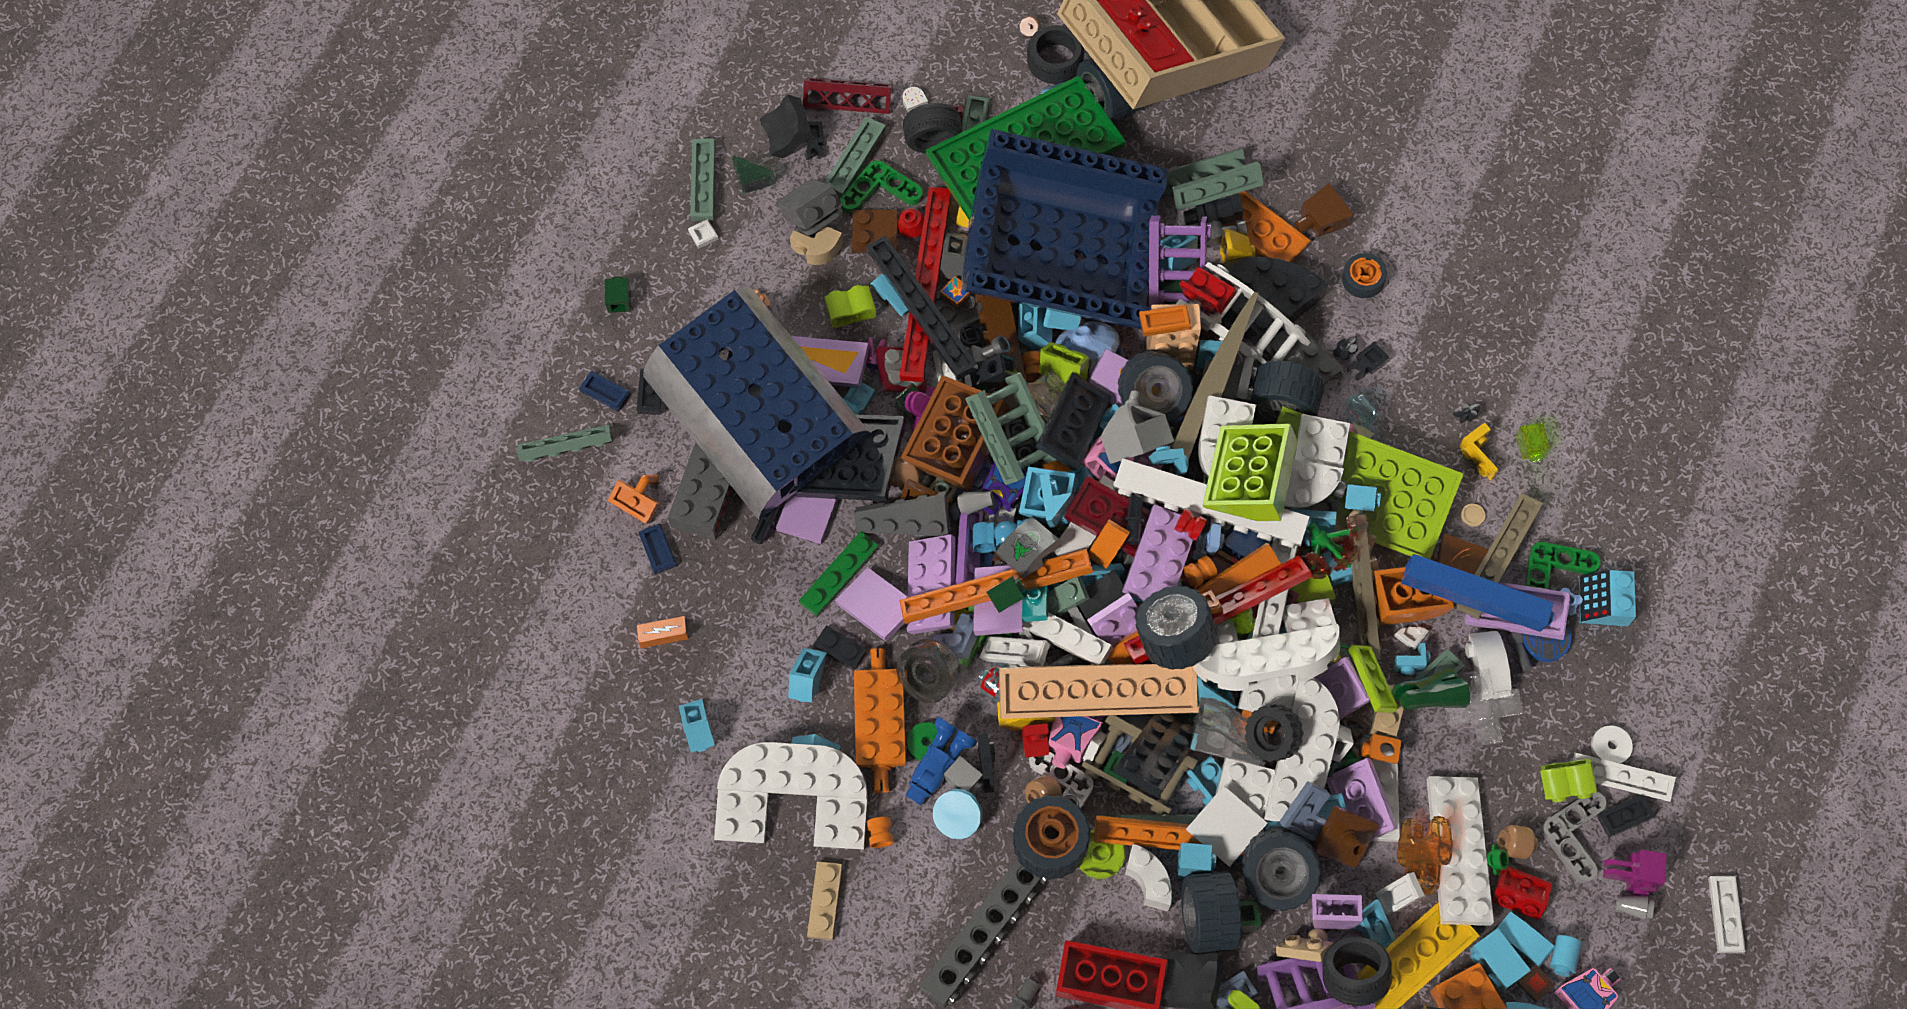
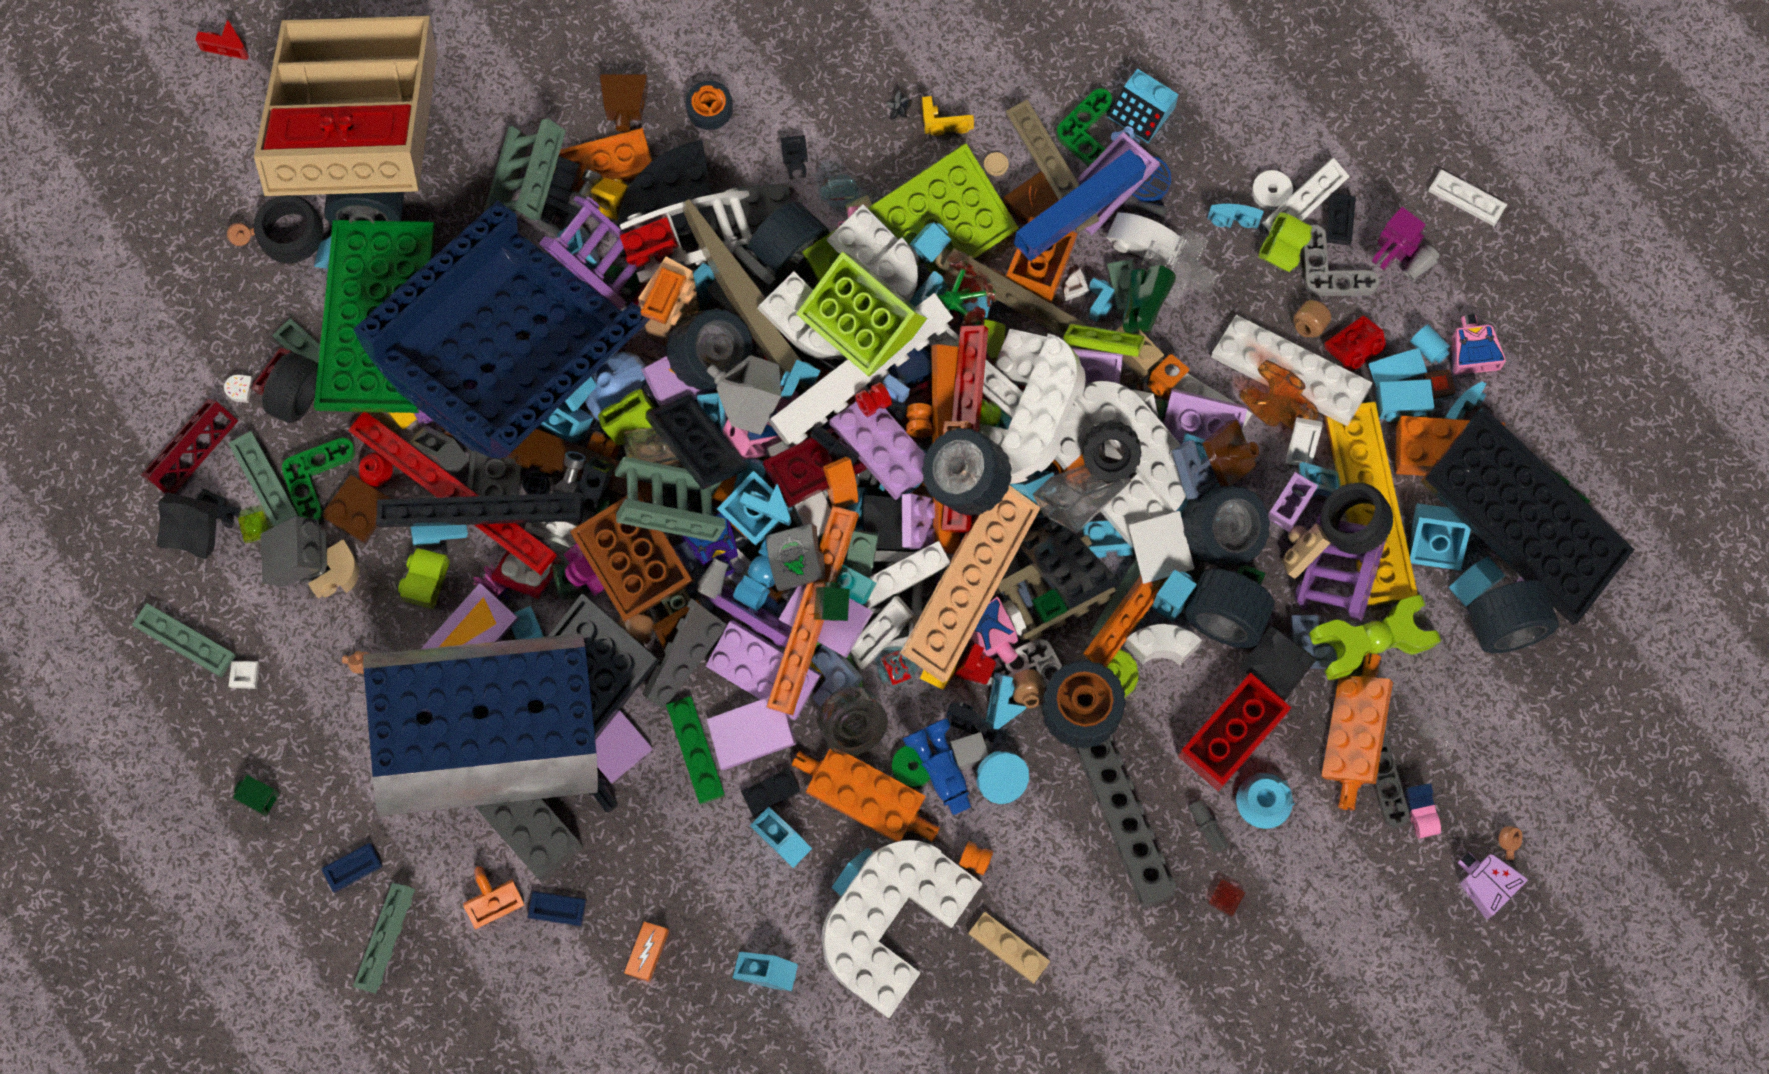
camera: 60 degrees left, 5 degrees up
(648, 400) = (390, 827): black plate -> none
(752, 176) = (214, 591): clear green slope -> none
(816, 170) = (253, 526): none -> clear neon green plate
(954, 292) = (479, 470): tile -> none
(1013, 781) = (1000, 708): none -> medium azure slope
(1345, 348) = (769, 166): black plant -> none
(1497, 859) = (1318, 344): green plate -> none
(1532, 442) = (963, 71): clear neon green brick -> none
(1561, 720) = (1225, 214): none -> medium azure slope

